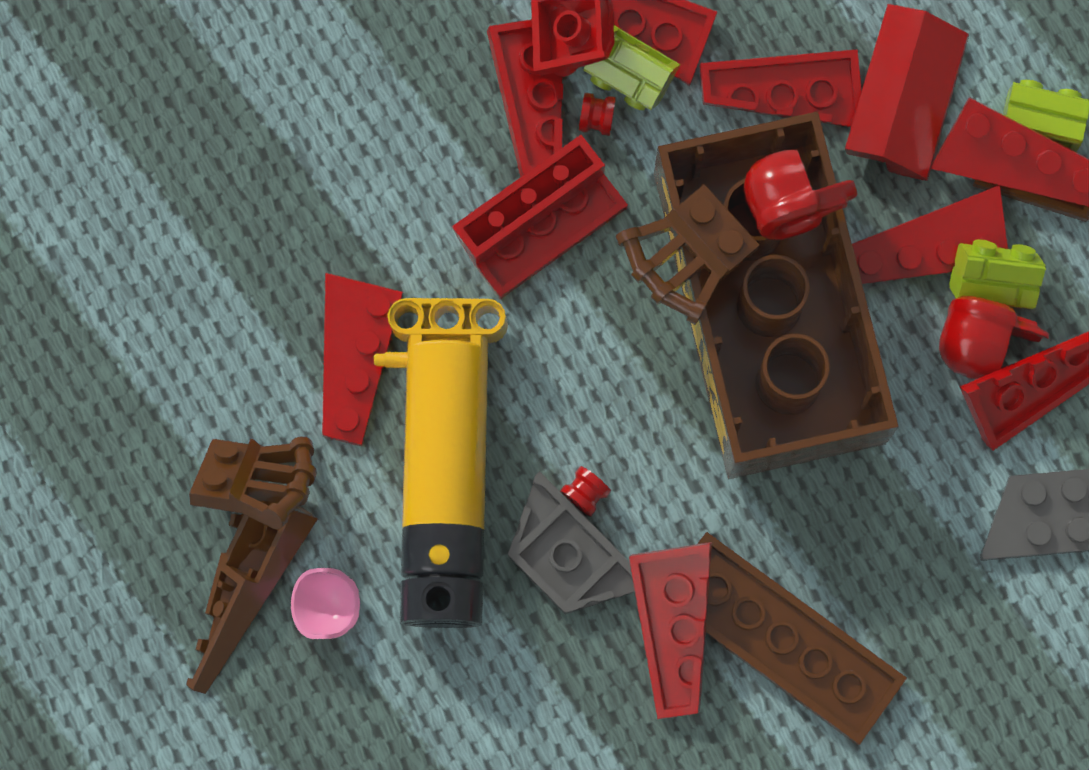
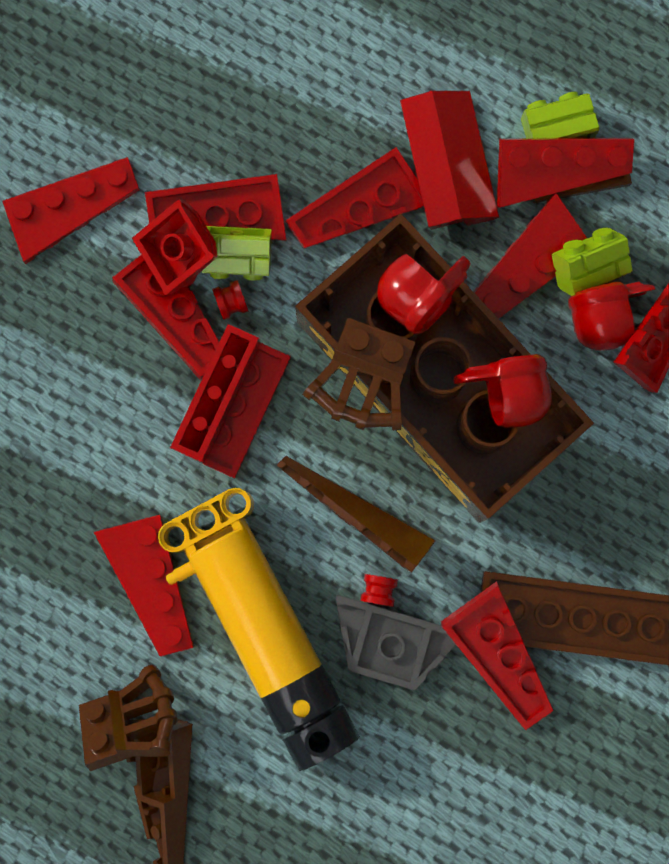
camera: 30 degrees left, 5 degrees up
(324, 603) = (234, 786): bright pink helmet -> none
(628, 438) = (388, 533): none -> reddish brown wedge
(836, 341) = (516, 388): none -> red piece

